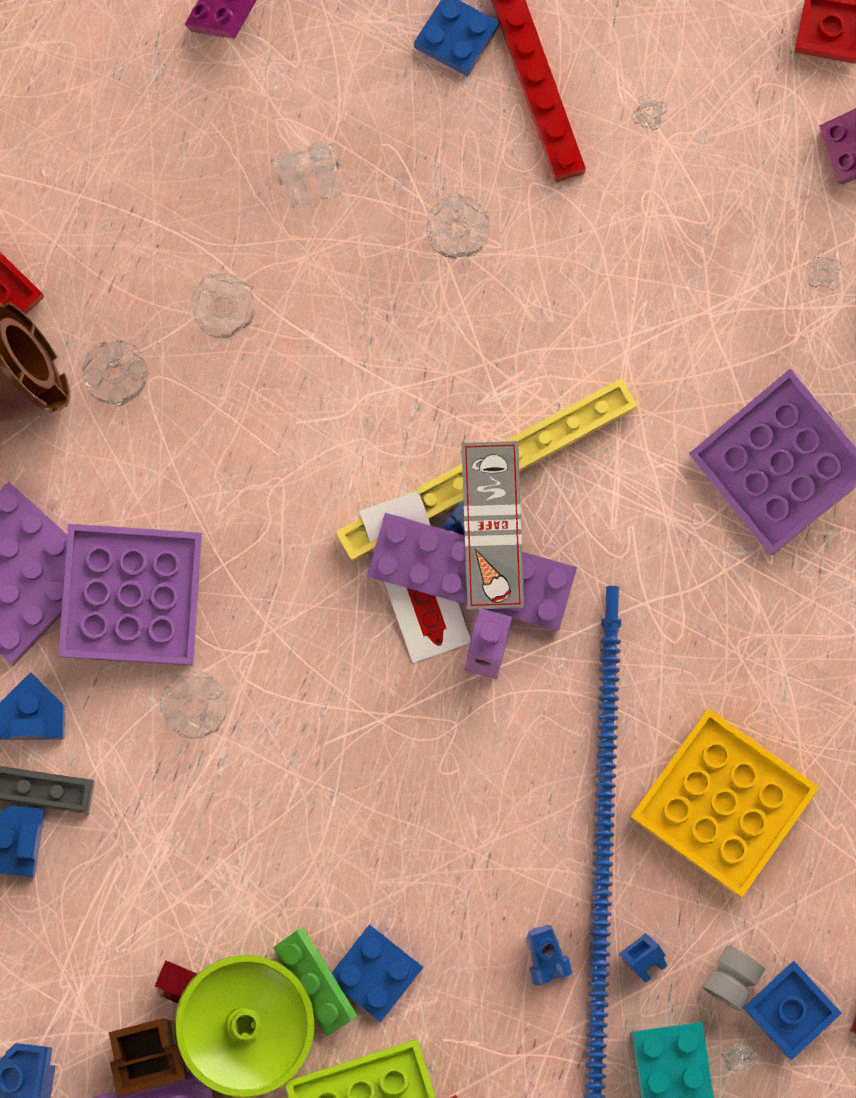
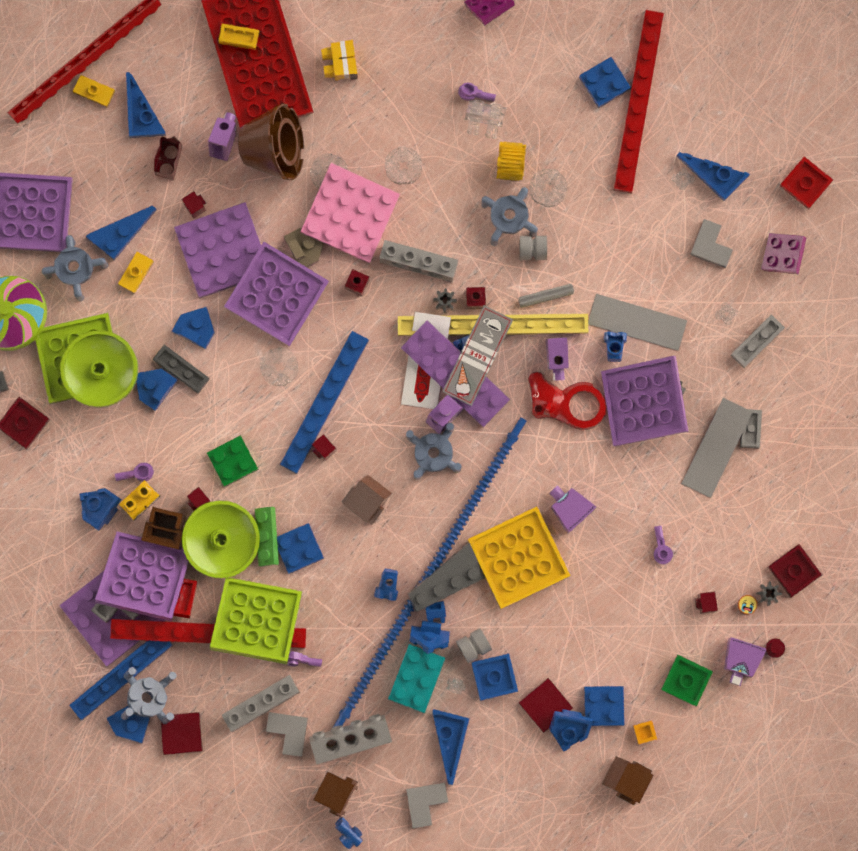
camera: 25 degrees right, 5 degrees up
(49, 197) = (343, 60): none -> yellow hips
(63, 985) = (142, 472): none -> medium lavender plate
(81, 1026) = (138, 498): none -> yellow hips
(136, 499) = (304, 248): none -> dark tan plate
(179, 415) = (350, 213): none -> bright pink plate
(197, 891) = (232, 461): none -> green plate
(250, 523) = (358, 289): none -> dark red plate
(264, 147) = (469, 92): none -> medium lavender plate
(293, 724) = (324, 402): none -> blue plate
(323, 432) = (418, 261): none -> light grey brick
(330, 794) = (323, 448): none -> dark red plate
(383, 213) = (511, 161): none -> yellow brick
(390, 477) = (449, 297): none -> dark grey gear
(423, 311) = (505, 225): none -> sand blue plate
(441, 838) = (367, 499): none -> reddish brown plate
(442, 452) = (475, 303): none -> dark red plate
(488, 322) = (533, 247): none -> light grey wheel
(505, 690) = (430, 441): none -> sand blue plate
(543, 385) = (546, 295): none -> light grey axle
(608, 451) = (554, 348): none -> medium lavender torso
(640, 887) = (454, 575): none -> dark grey wing
(646, 539) = (554, 403): none -> red animal
(657, 1001) = (429, 636): none -> blue plate
(687, 400) = (615, 342): none -> blue plate
(700, 85) = (719, 178): none -> blue wing
(700, 354) = (637, 322): none -> light grey sticker
(740, 194) = (707, 249): none -> light grey tile
(760, 683) = (570, 507): none -> medium lavender torso

